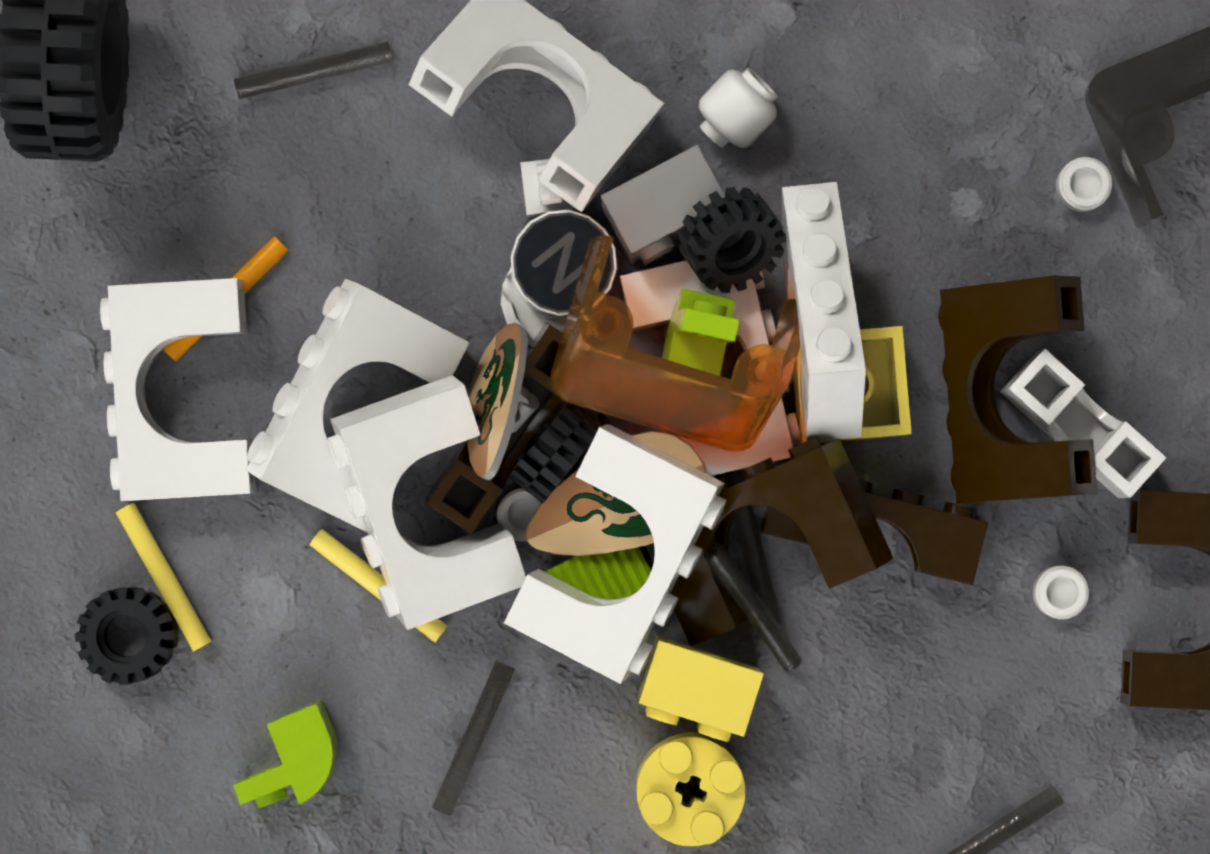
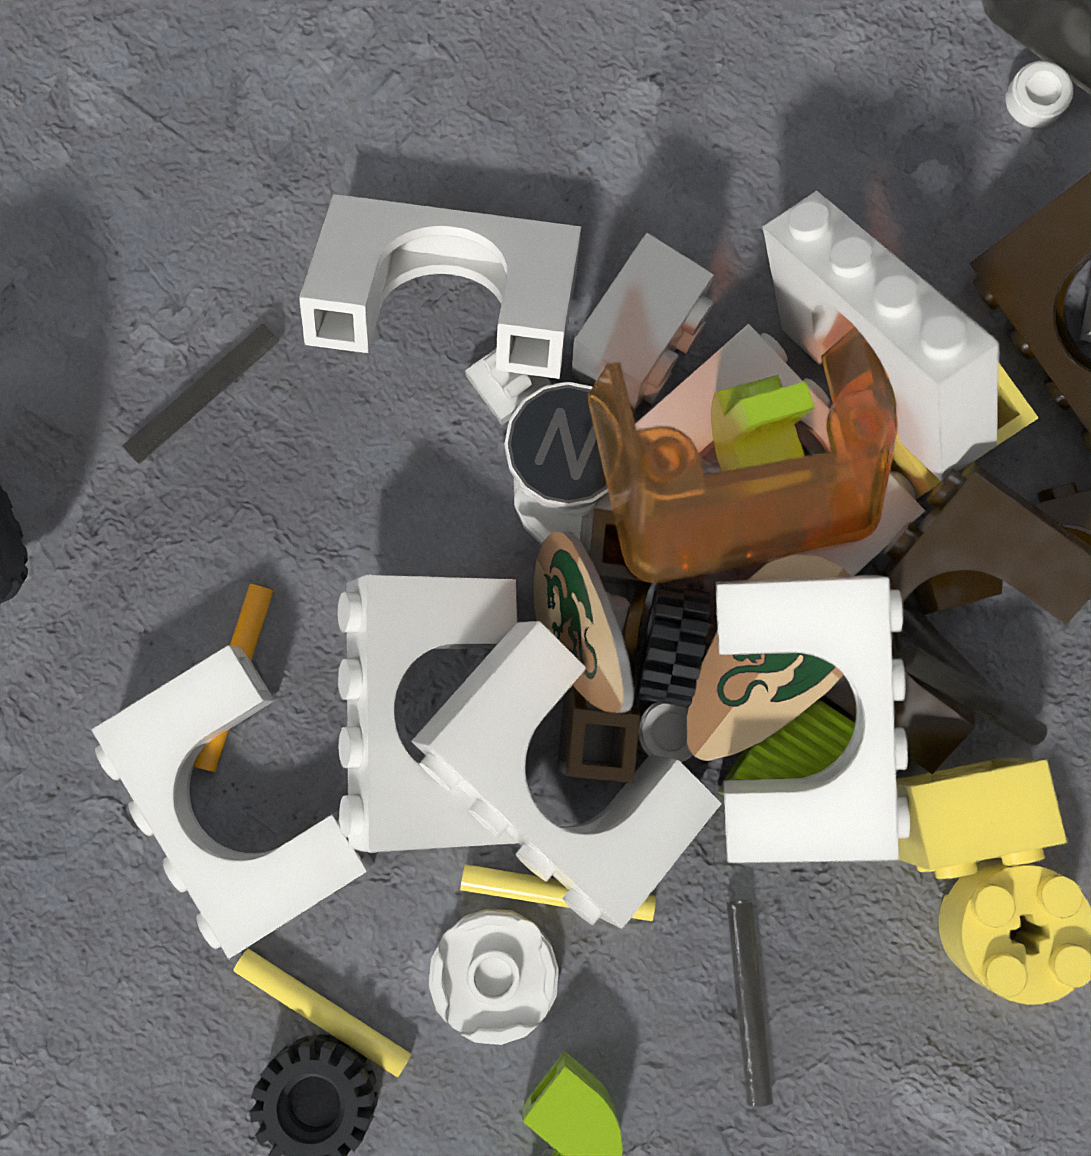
camera: 30 degrees left, 5 degrees down
(300, 619) = (494, 976): none -> white tile
(718, 222) = (714, 308): black tyre -> none
(737, 108) = (657, 195): white head -> none

